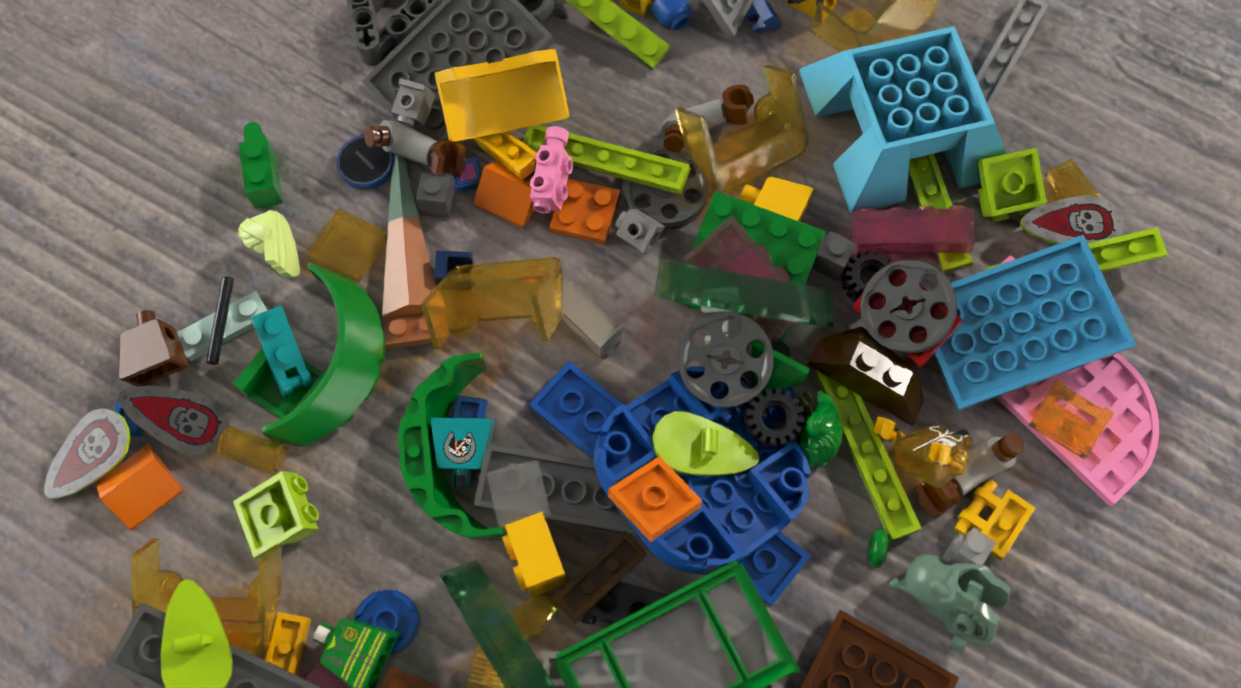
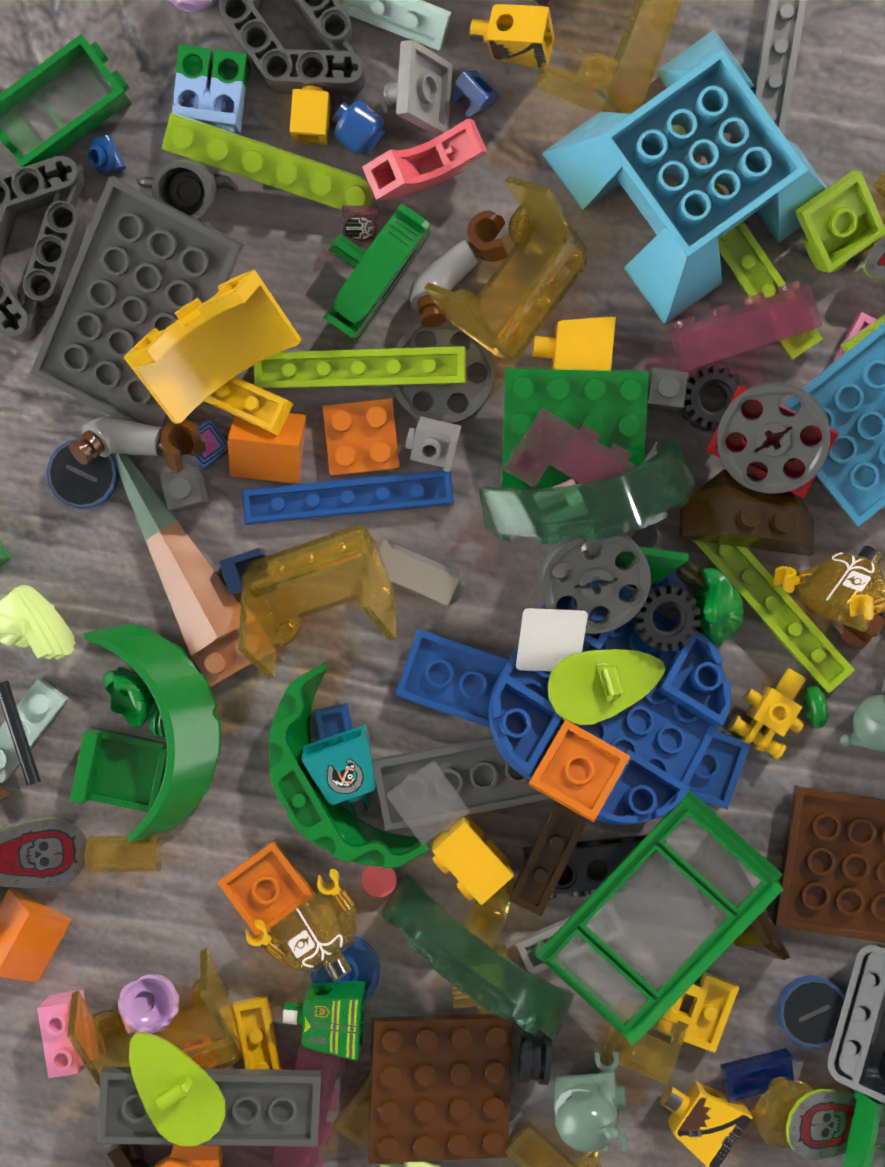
camera: 20 degrees left, 20 degrees up
(117, 585) = (58, 1050): none -> bright pink window
(214, 574) = (148, 1004): none -> lavender hair
(276, 513) = (183, 912): lime plate -> none
(281, 350) = (102, 743): teal plate -> none
(320, 329) = (133, 700): none -> green hair
(348, 245) = (112, 583): clear yellow tile -> none
(353, 522) = (266, 887): none -> orange plate
(376, 570) = (313, 932): none -> clear yellow torso
(412, 103) = (116, 382): light grey brick -> none
(450, 552) = (379, 880): none -> coral tile
(551, 172) = (312, 416): bright pink brick -> none
(572, 252) = (347, 497): none -> blue tile
(644, 100) = (375, 270): none -> green piece
(646, 68) = (360, 223): none -> tile
(671, 390) = (549, 637): none -> white sticker
(709, 48) = (426, 165): none -> coral arch
(838, 538) = (773, 710): none -> yellow piece

